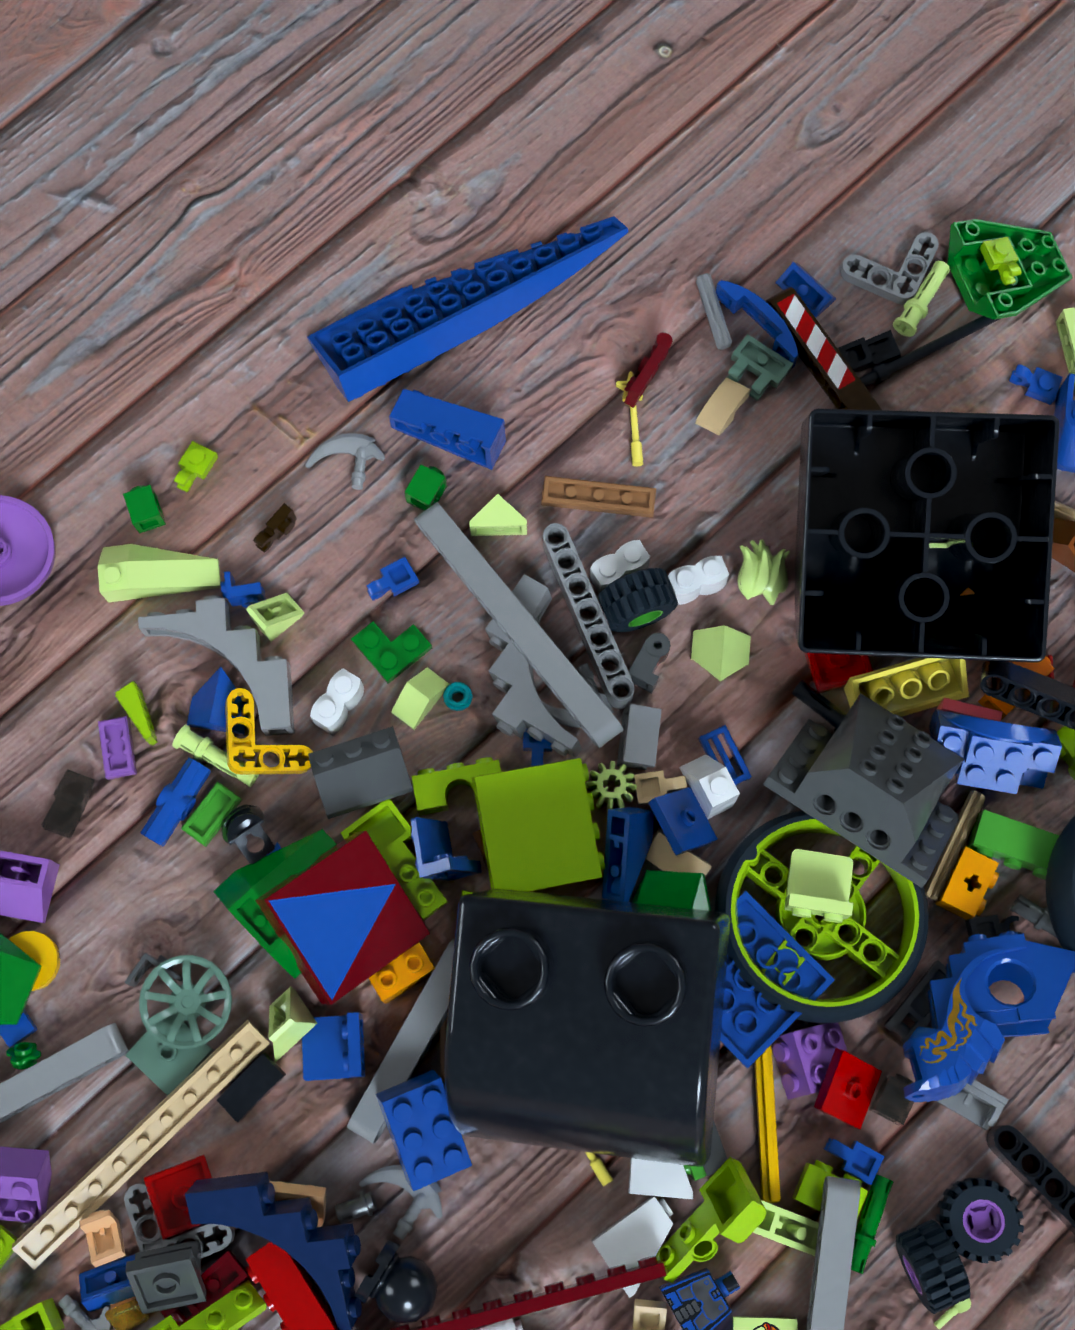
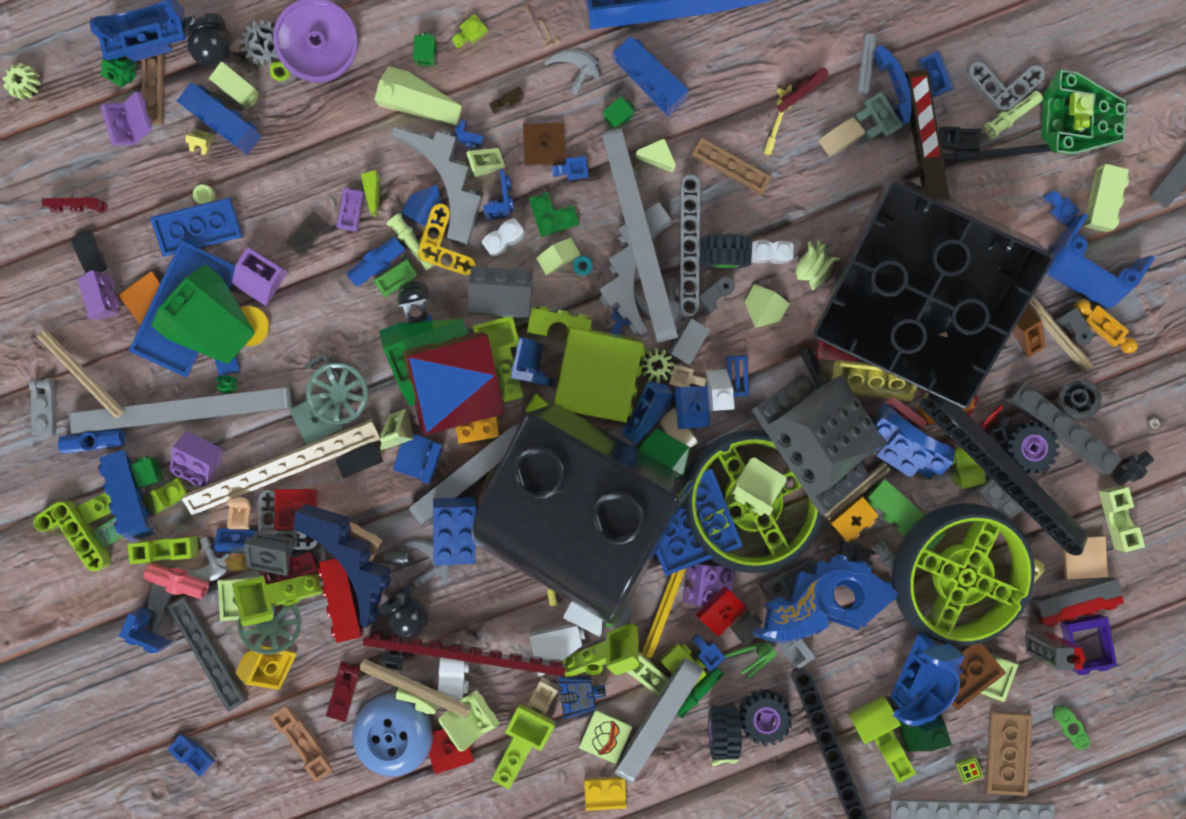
camera: 20 degrees right, 15 degrees up
(317, 666) = (498, 210): none -> blue bracket
(344, 564) = (544, 144): none -> reddish brown plate
(627, 559) = (728, 222): white brick -> none
(935, 1126) = (765, 654): none -> bright green plant

